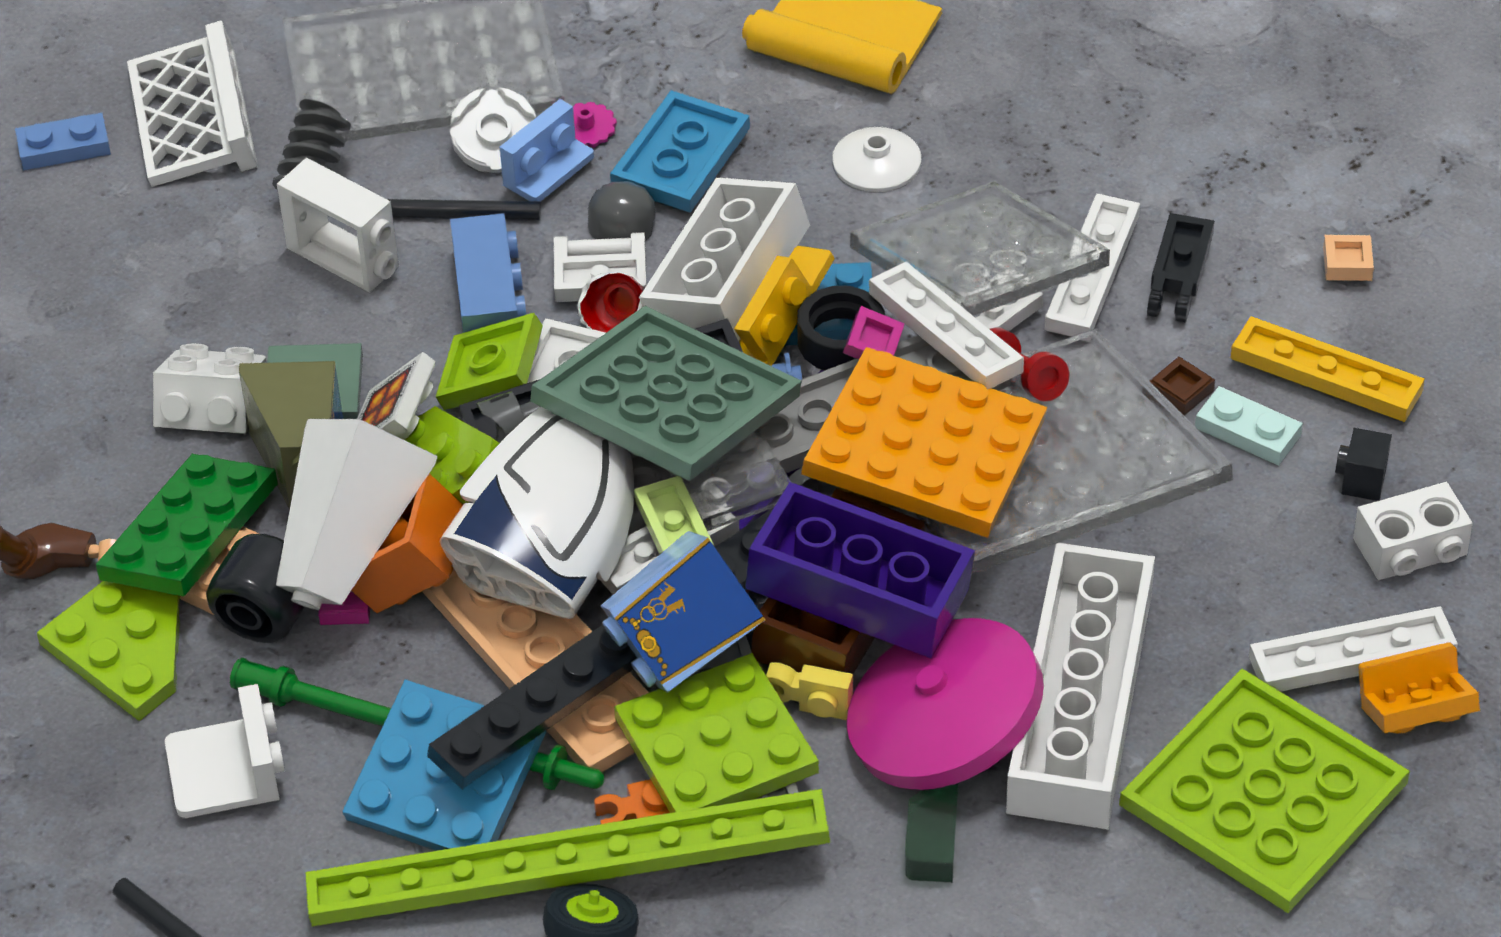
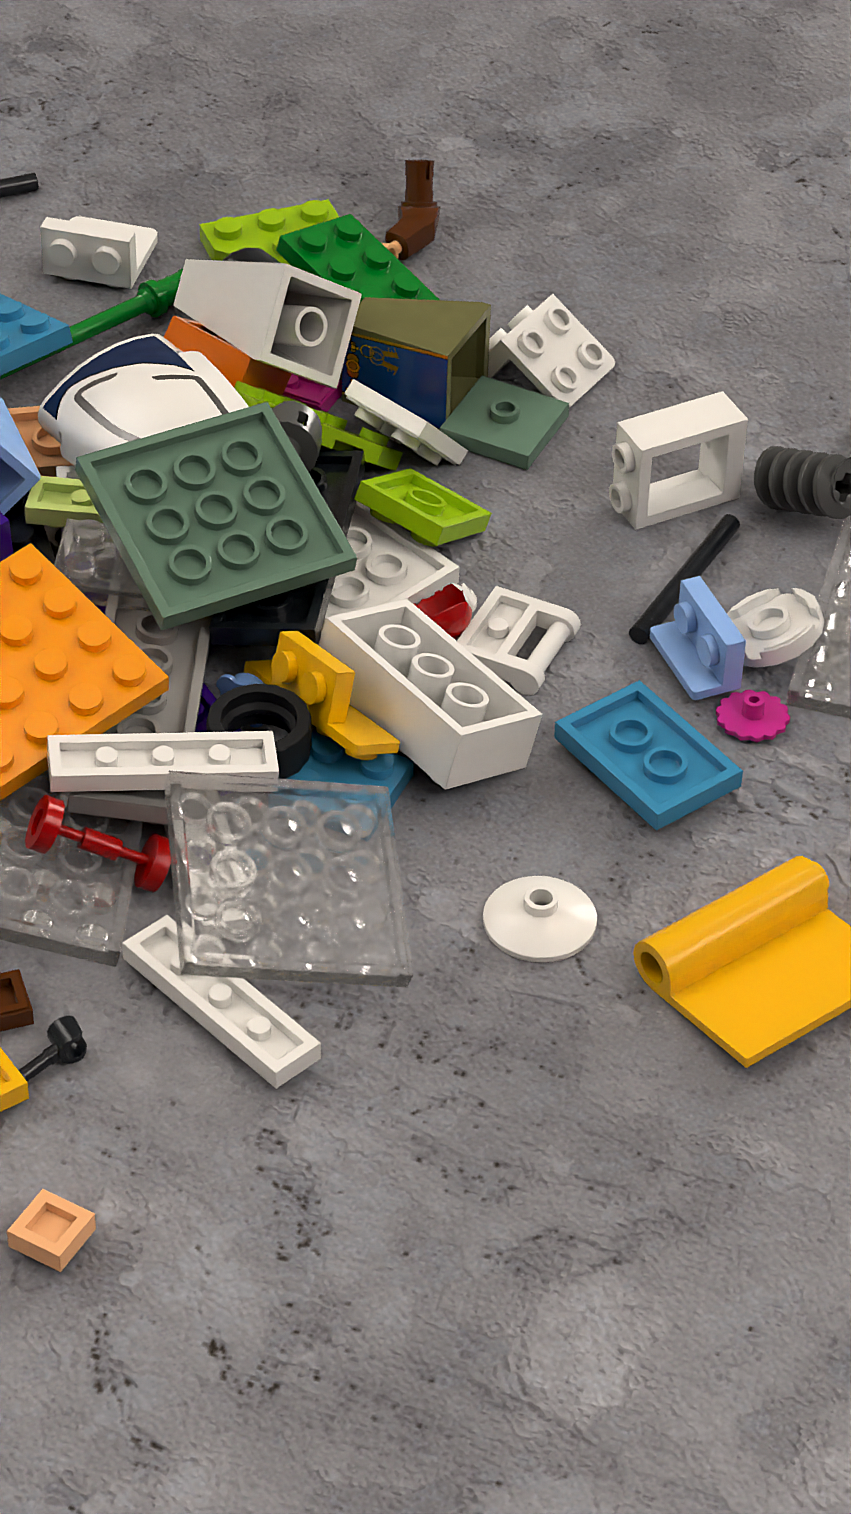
camera: 115 degrees right, 5 degrees down
(485, 271) = (549, 551): medium blue brick -> none
(620, 210) = (583, 677): dark grey hair -> none
(873, 331) = (191, 705): dark pink plate -> none
(1180, 263) = (165, 1076): black hinge -> none
(1192, 326) = (66, 1046): none -> black hand

